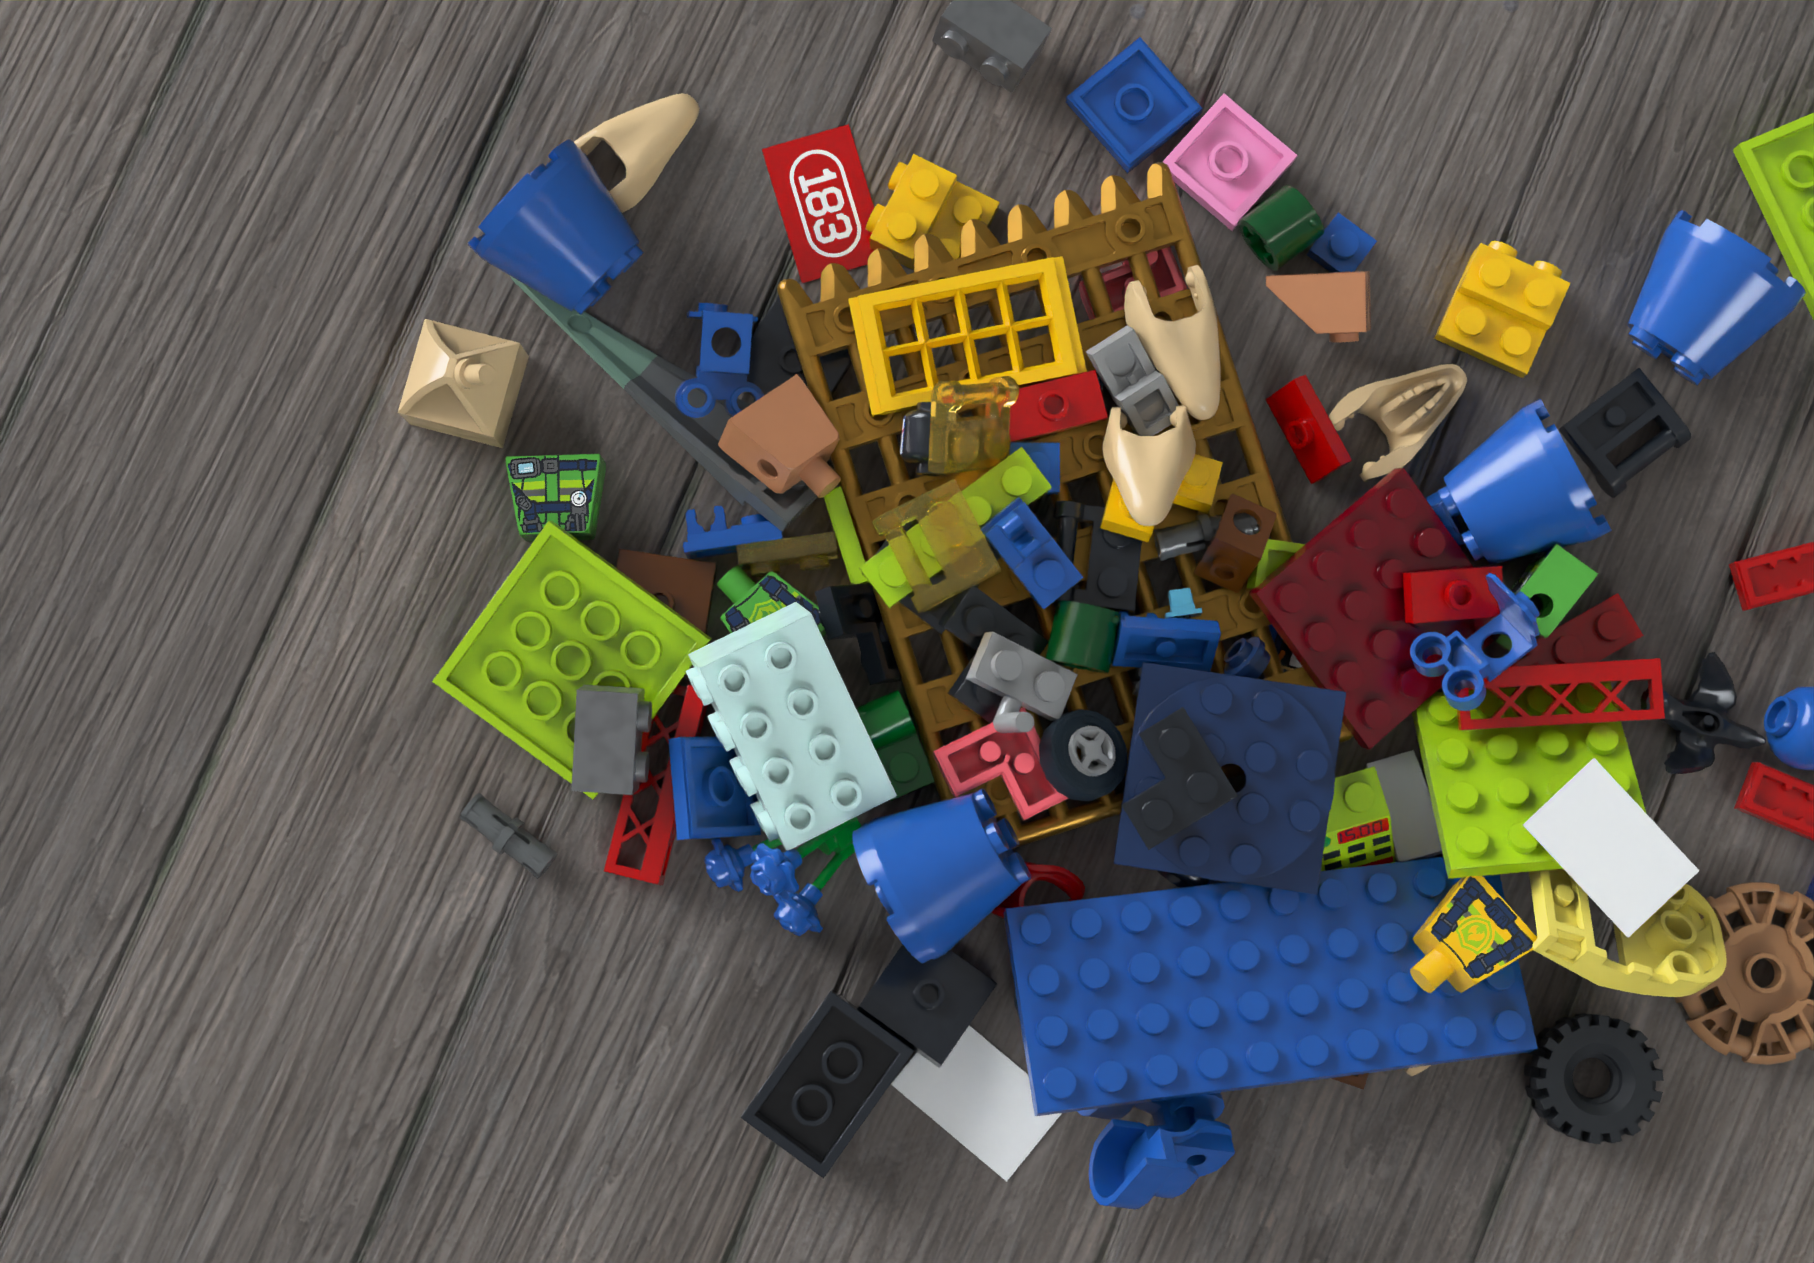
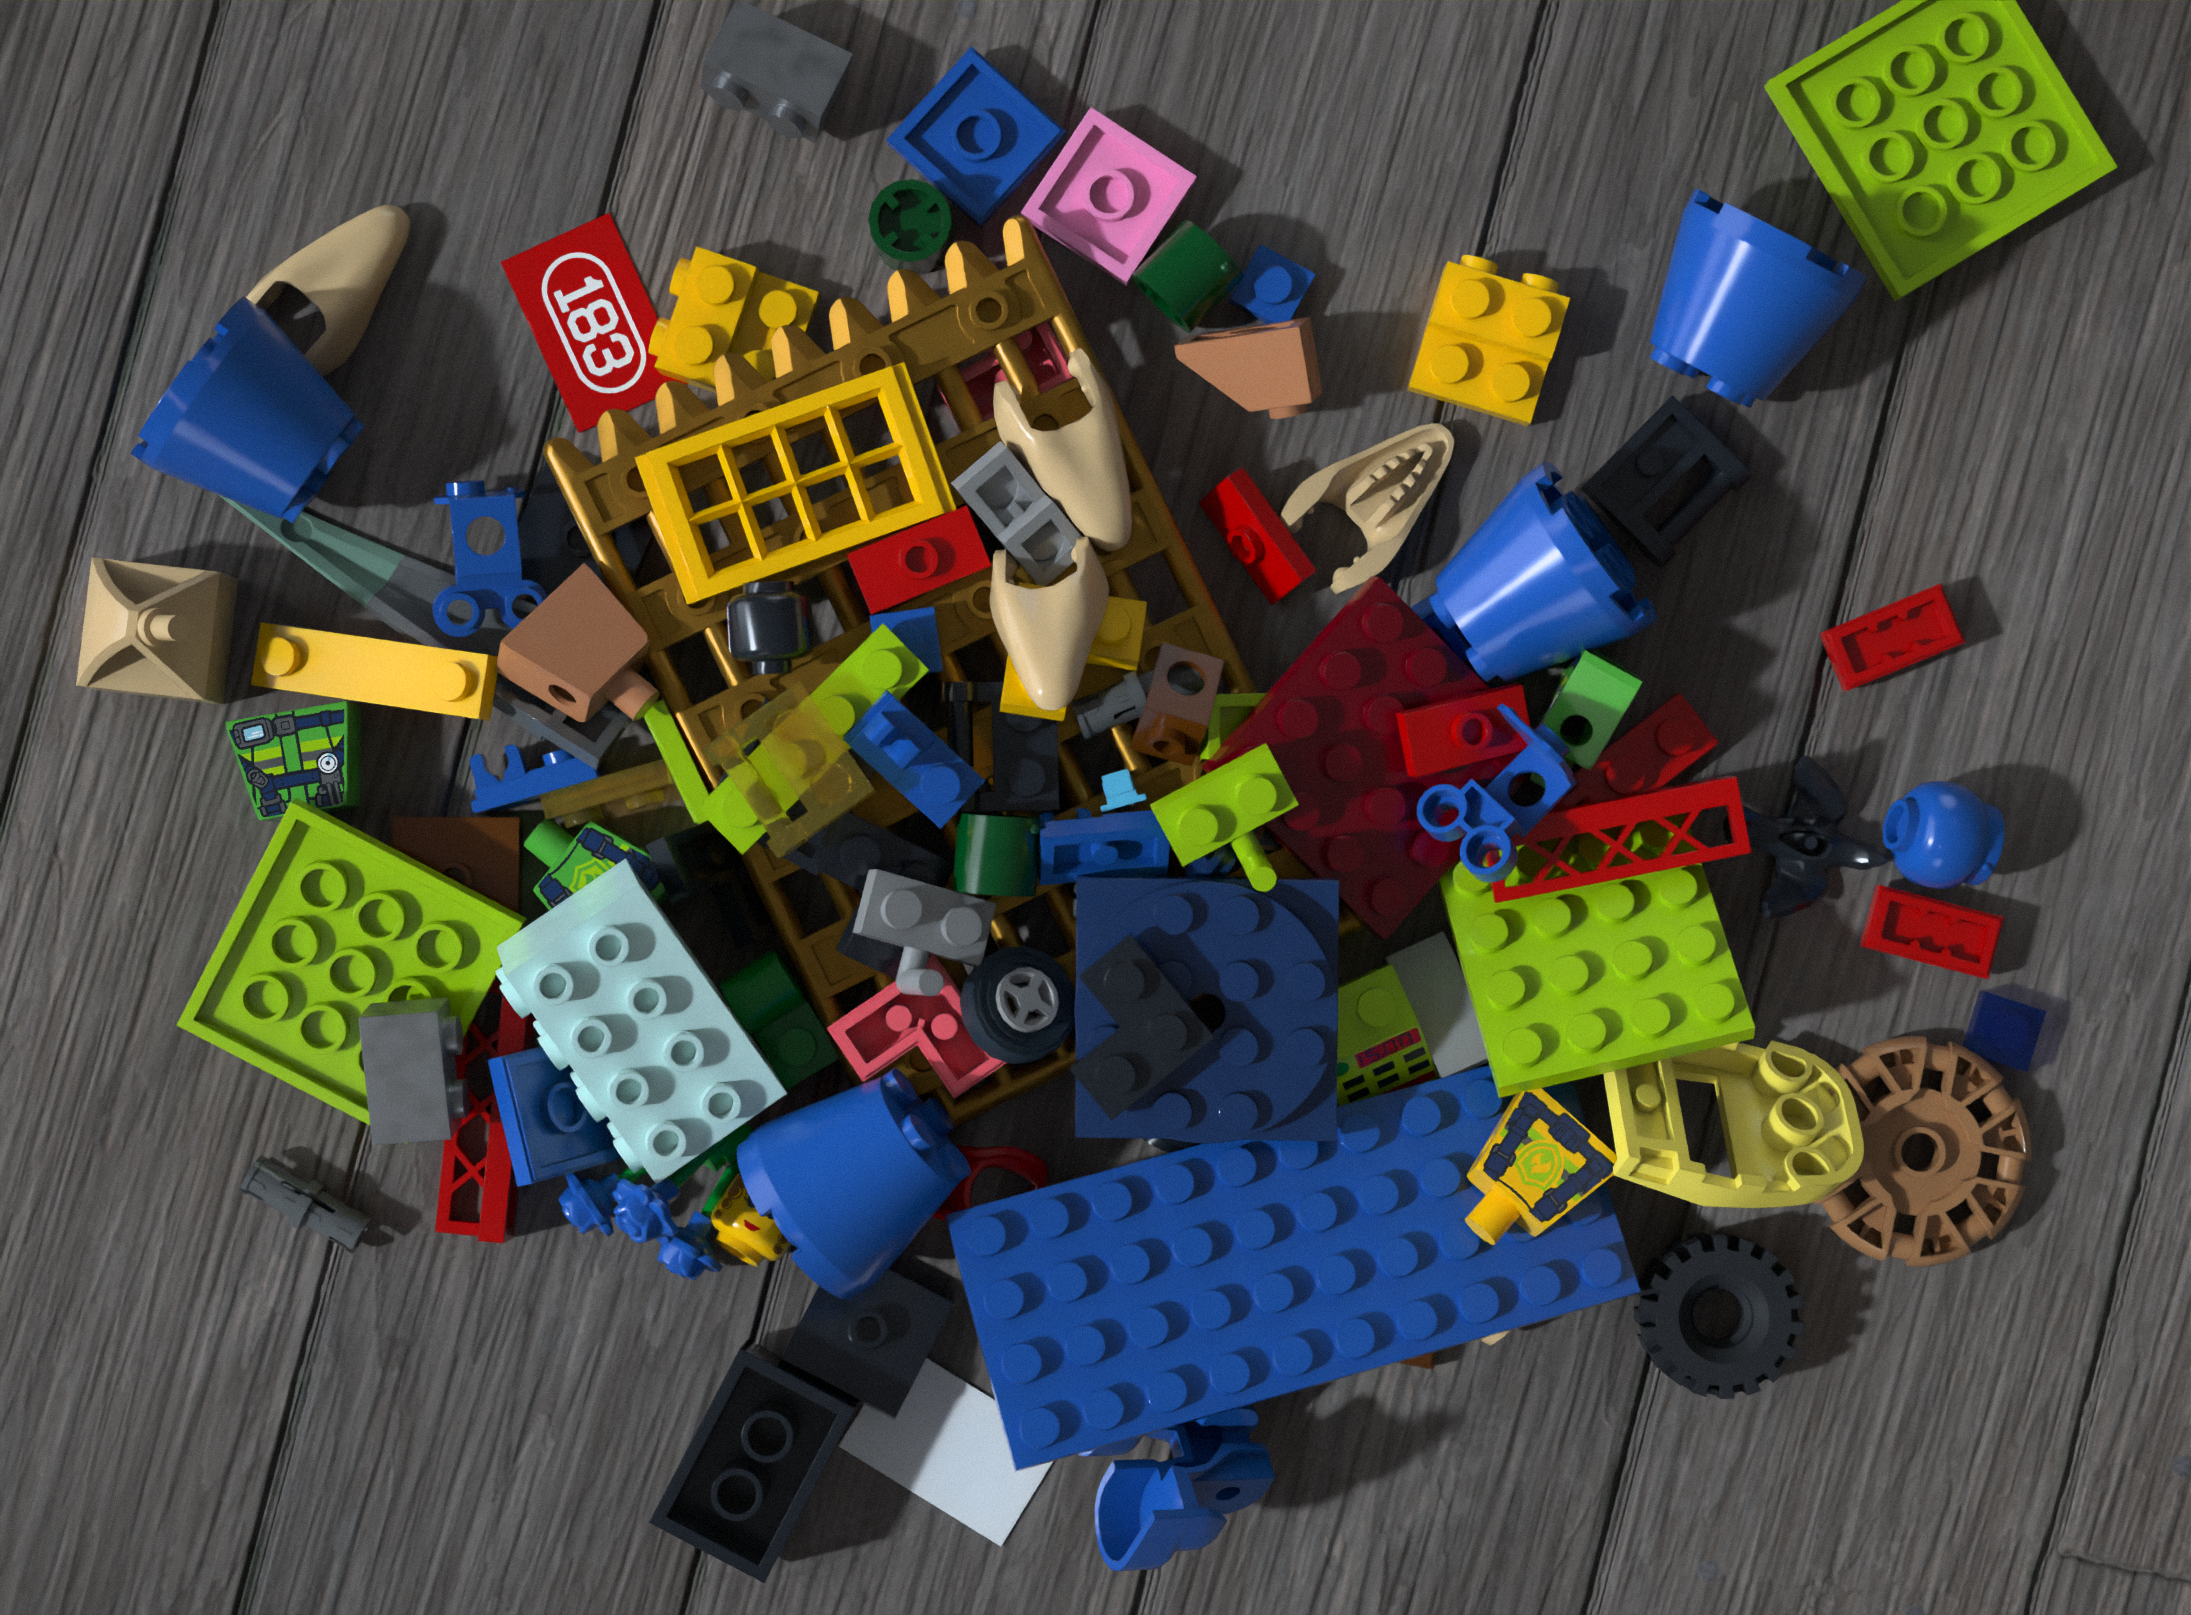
camera: 10 degrees left, 5 degrees up
(625, 435) = (375, 671): none -> yellow plate
(849, 899) = (744, 1230): none -> yellow head
(970, 441) = (818, 625): clear yellow plate -> none
(1077, 161) = (911, 226): none -> dark green piece
(1267, 624) = (1226, 809): none -> lime plate
(1611, 847) = (1696, 1032): white sticker -> none

